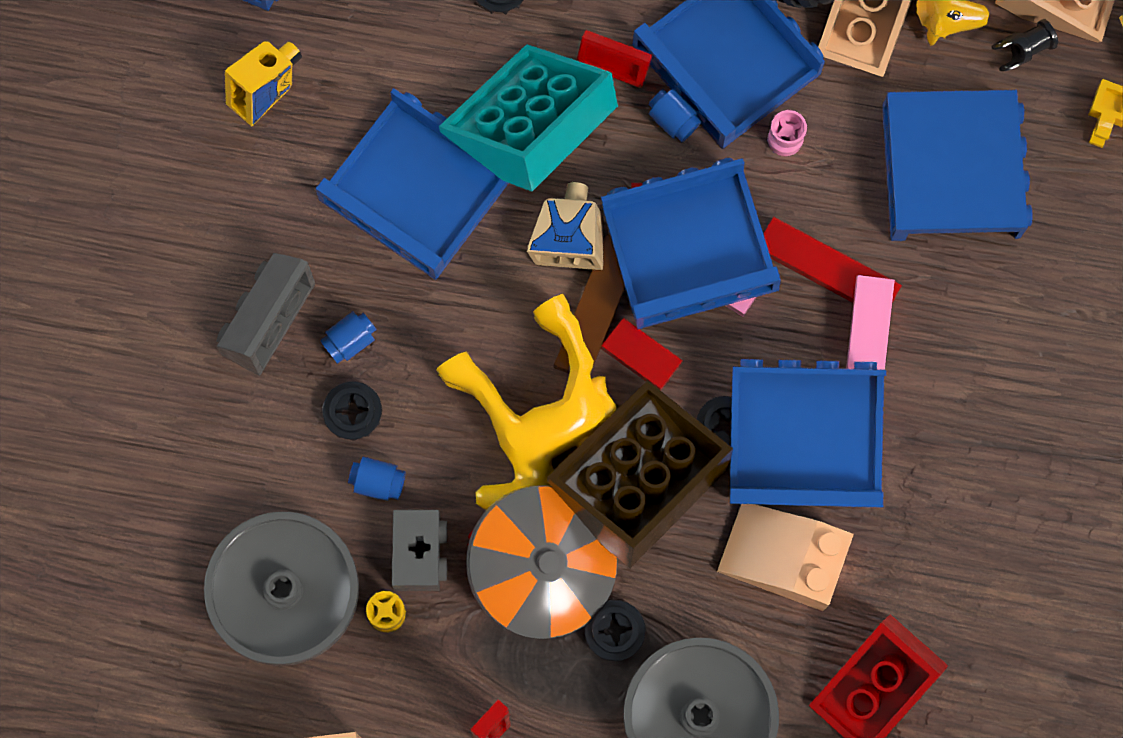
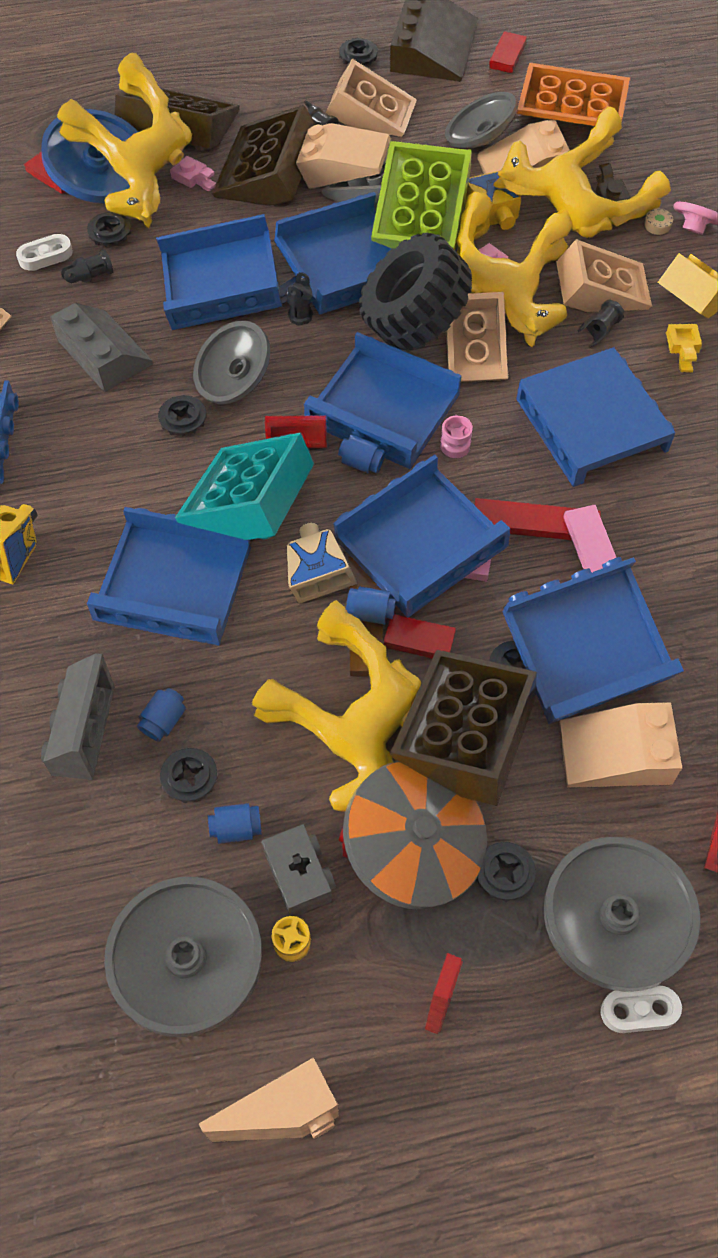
camera: 20 degrees left, 15 degrees down
(602, 303) = (370, 604): none -> blue brick

